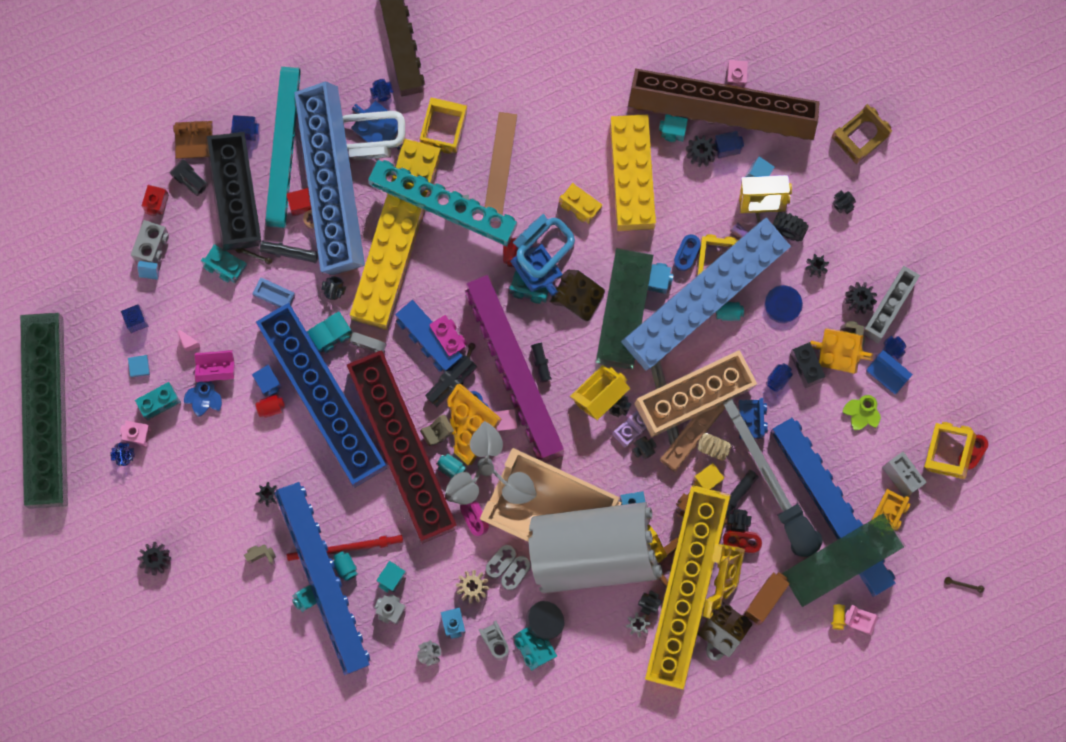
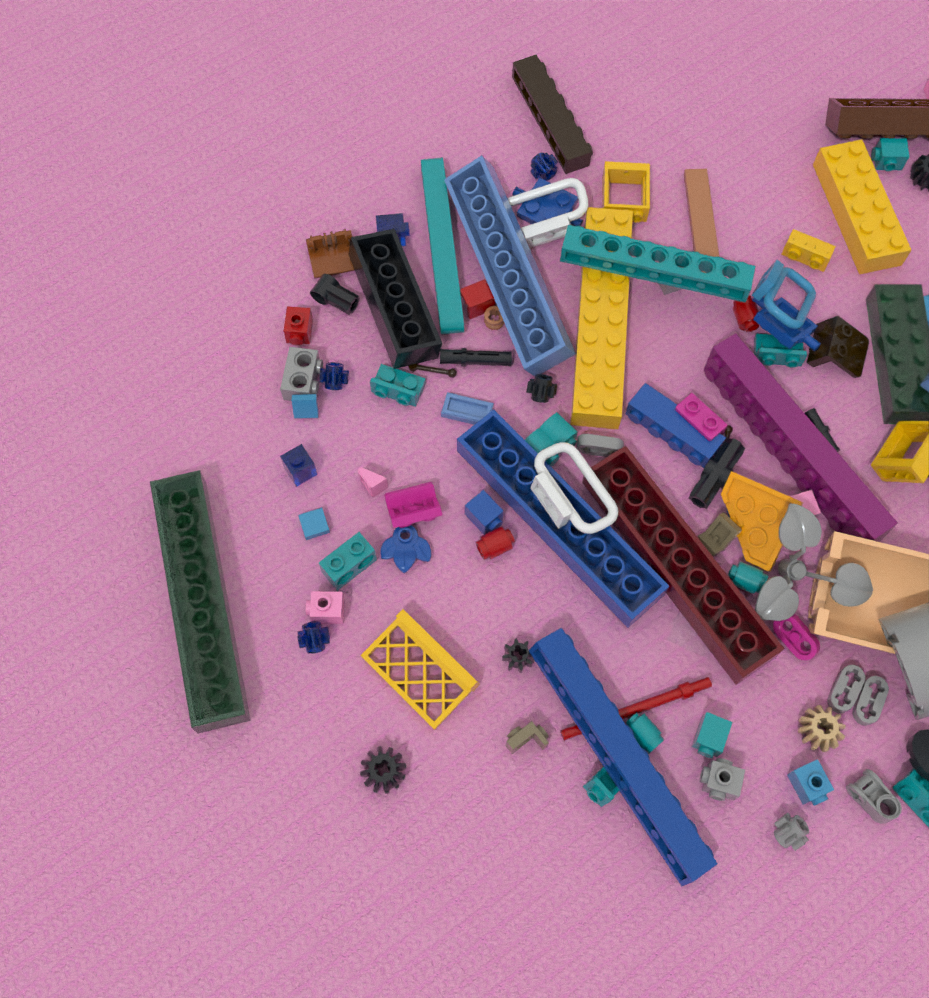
camera: 10 degrees left, 10 degrees down
(174, 249) = (334, 376): none -> clear blue gear
(210, 482) = (435, 652): none -> yellow fence
(316, 384) = (557, 503): none -> white bar

